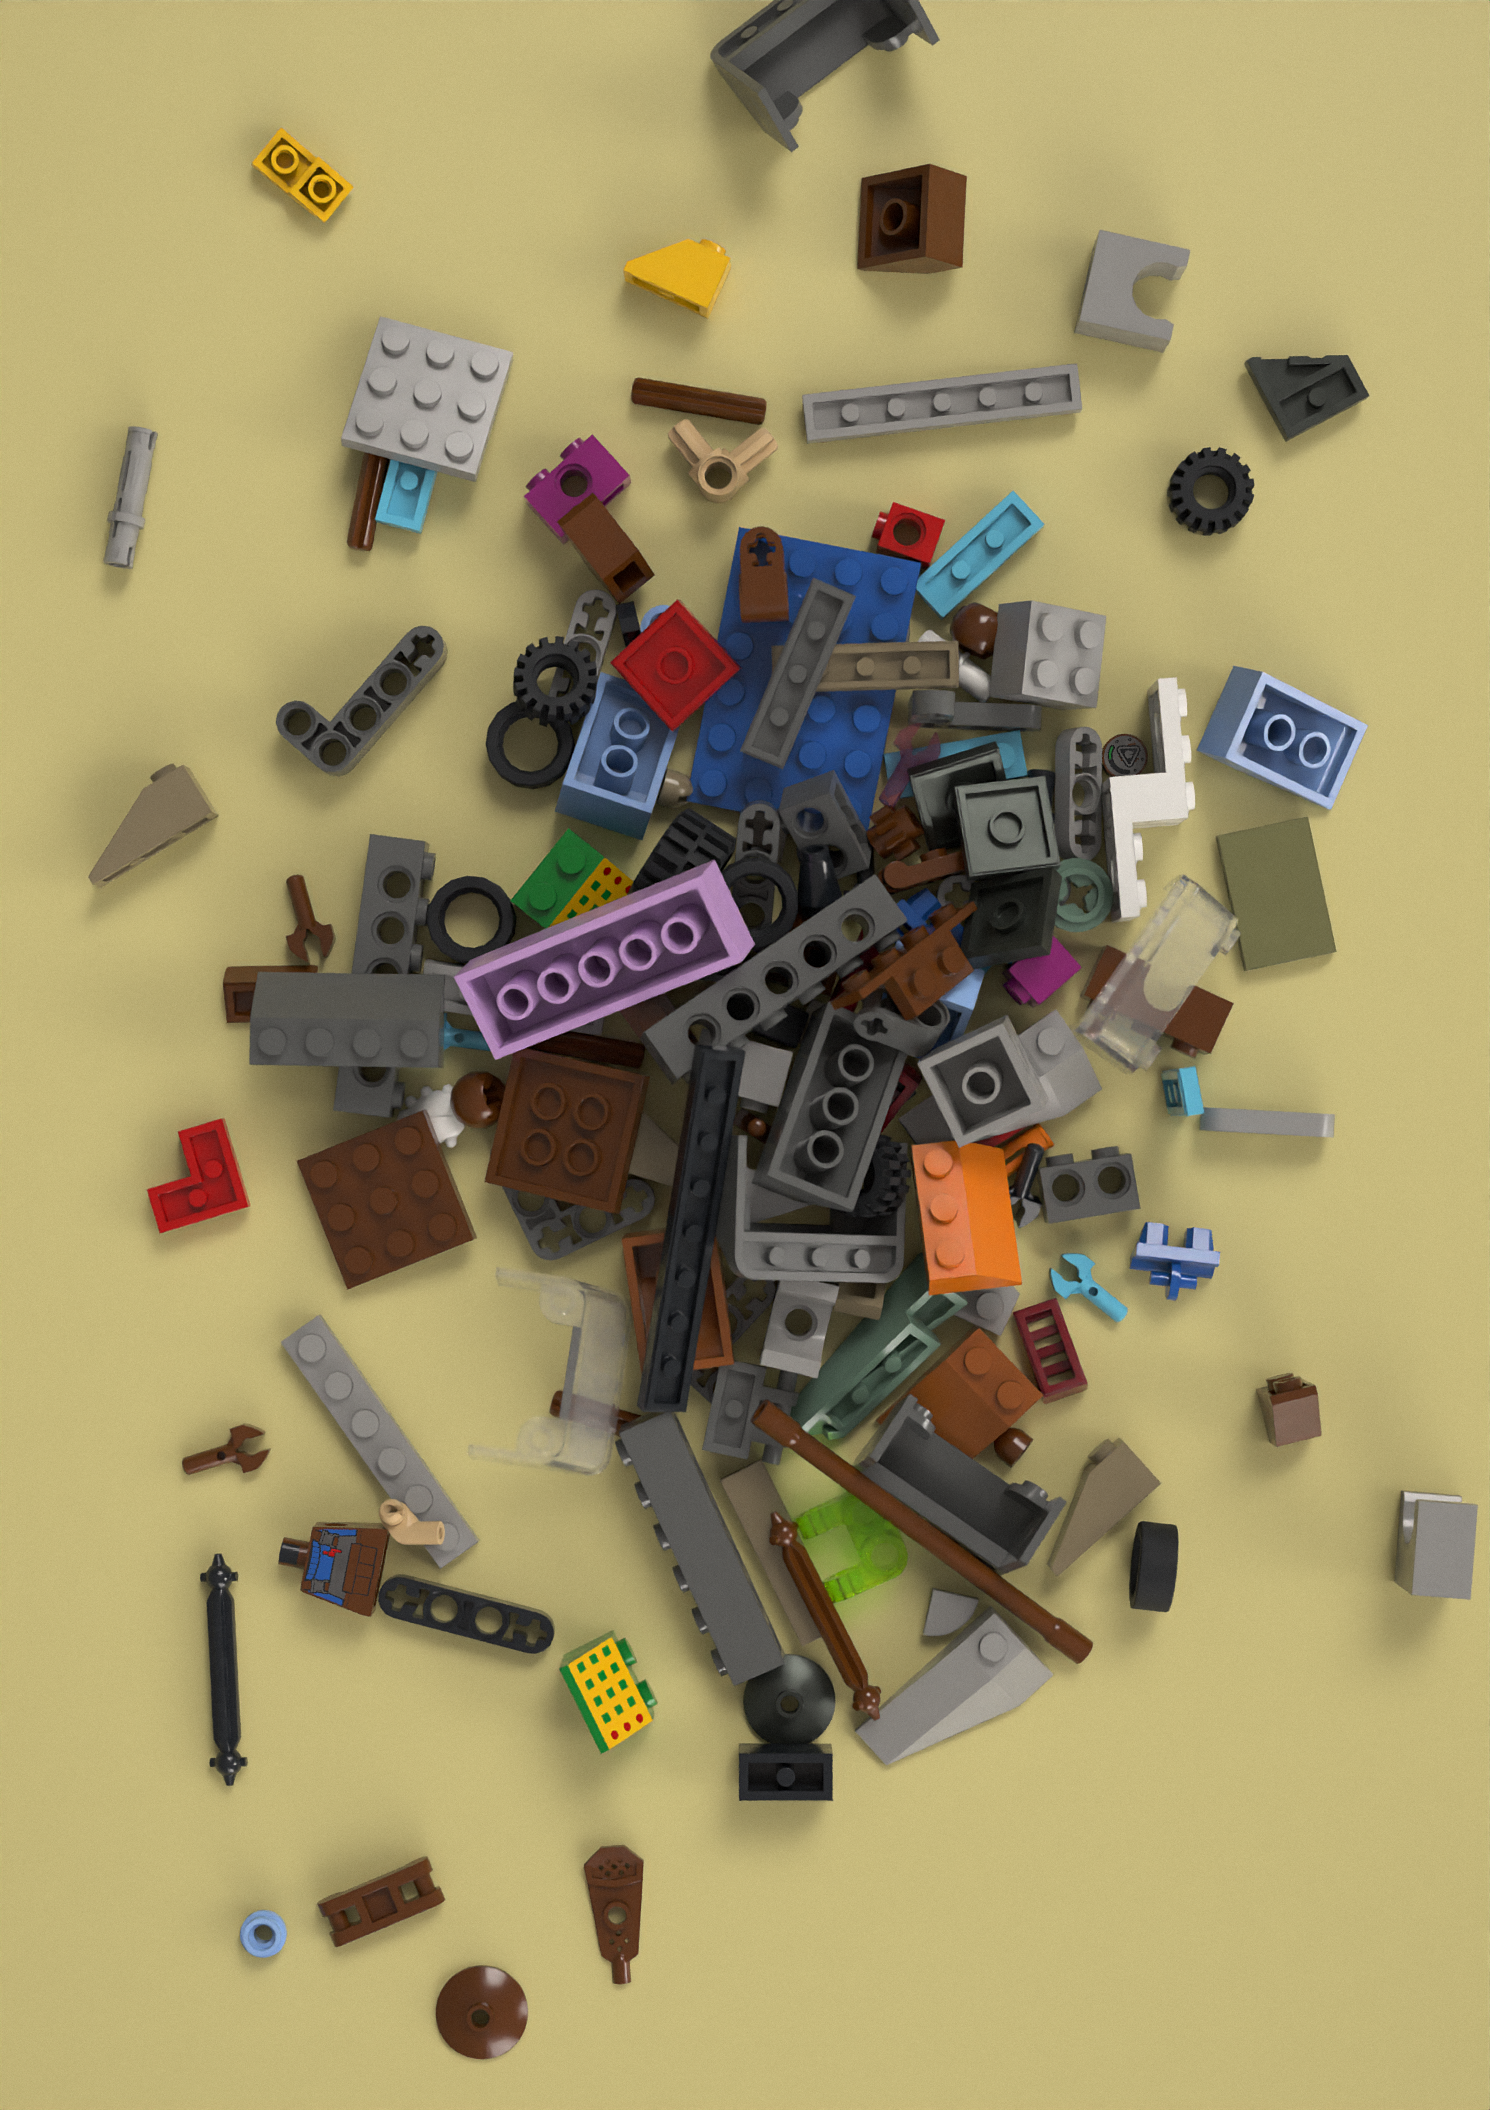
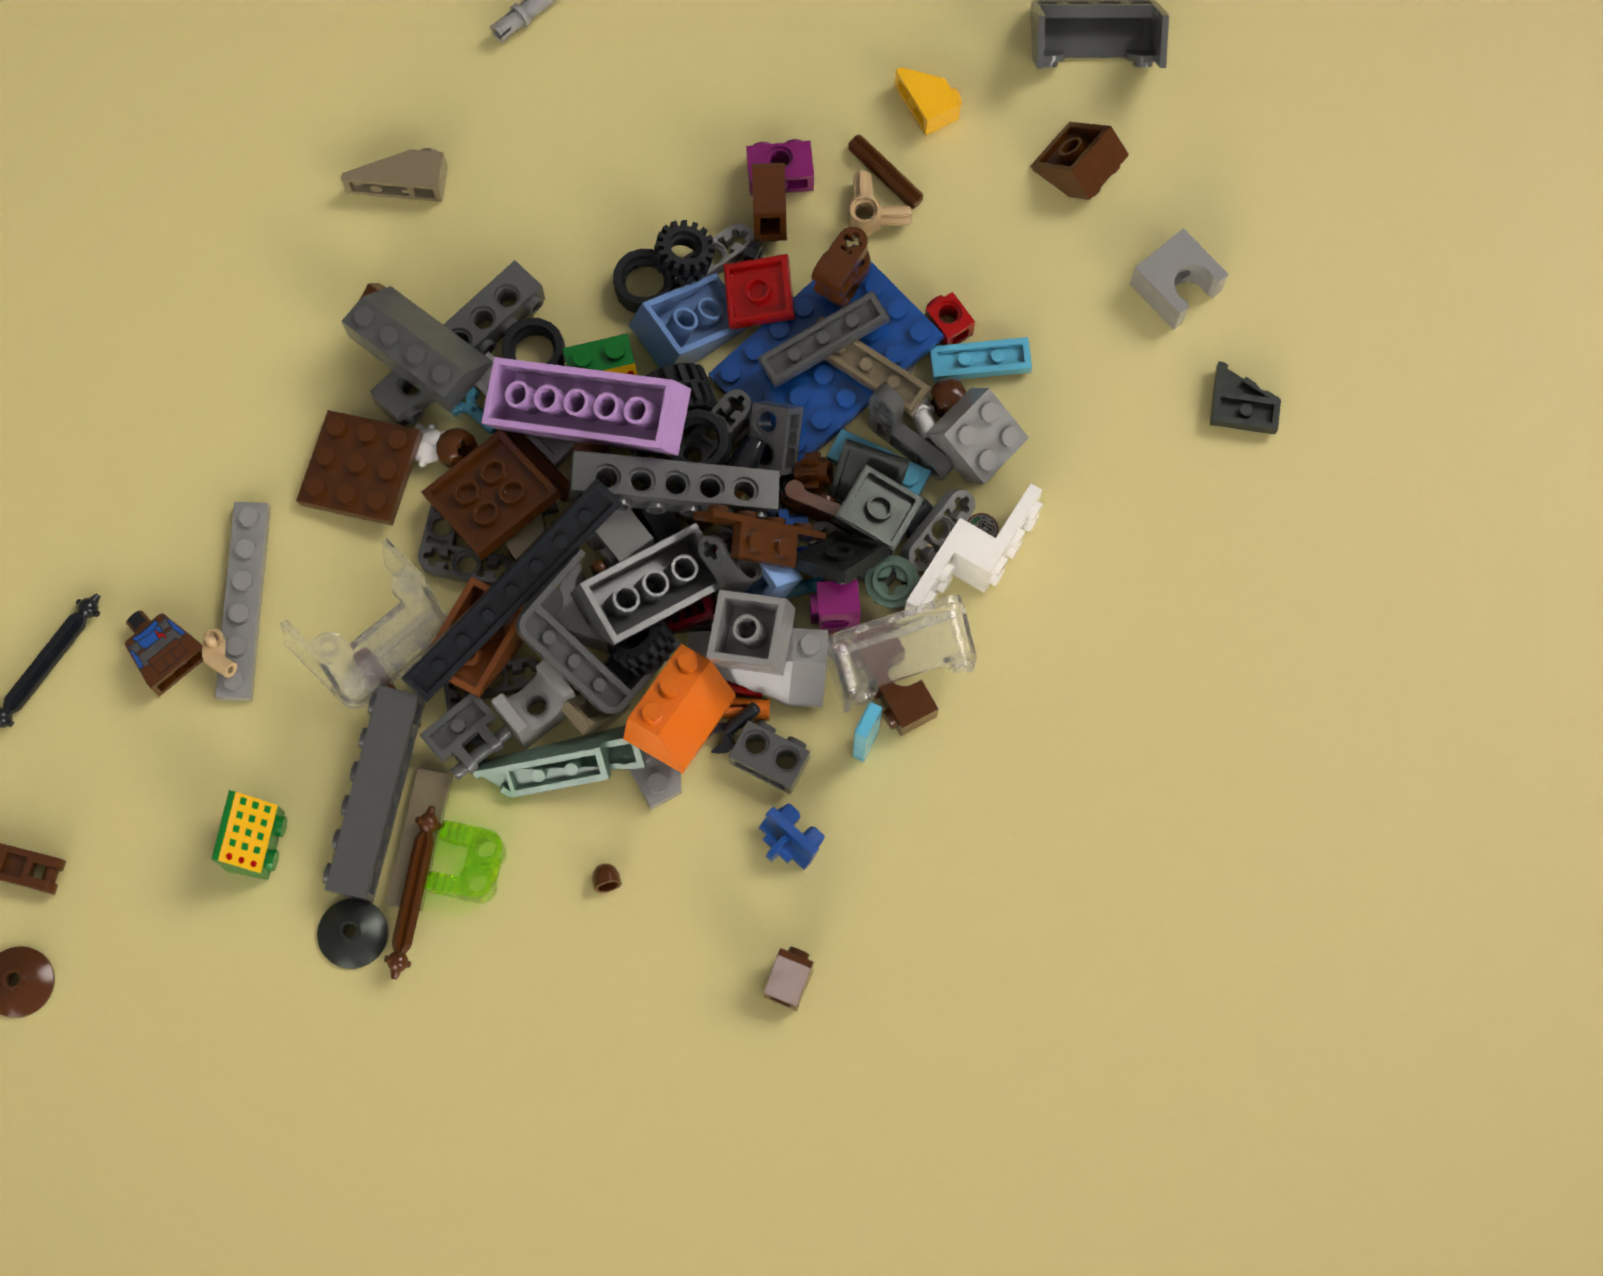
camera: 40 degrees right, 15 degrees down
(214, 1181) = (266, 390): red plate -> none
(228, 1453) = (154, 544): reddish brown bar -> none
(306, 921) = (442, 290): reddish brown bar -> none
(366, 502) = (669, 89): reddish brown axle -> none
(369, 695) = (574, 191): dark grey beam -> none
(405, 496) = (690, 101): medium azure plate -> none
(427, 399) = (734, 65): light grey plate -> none
(465, 1622) = (210, 734): black beam -> none
(616, 1891) = (161, 974): reddish brown piece -> none
(674, 789) = (707, 360): dark tan hinge -> none
(785, 1772) = (313, 967): black brick -> none
(791, 1435) = (542, 1006): reddish brown piece -> none
(899, 777) = (857, 425): clear pink bar -> none
(942, 403) = (1023, 265): light grey plate -> none
(948, 1612) = (488, 950): light grey tile -> none
(954, 1493) = (543, 864): dark grey windscreen -> none
(964, 1685) = (462, 1001): light grey wedge -> none
(972, 1393) = (593, 829): dark orange slope -> none
(1062, 1389) = (664, 860): dark red slope -> none
(1087, 1287) = (724, 818): medium azure bar -> none
(1105, 1494) = (636, 948): dark tan slope -> none
(1153, 1566) = (632, 1010): black tyre -> none
(1210, 463) = (1151, 402): black tyre -> none
(1267, 1122) = (907, 798): light grey beam -> none
(1276, 893) = (1013, 672): olive tile -> none
(1282, 736) = (1084, 583): medium blue slope -> none
(1435, 1545) = (816, 1127): light grey piece -> none

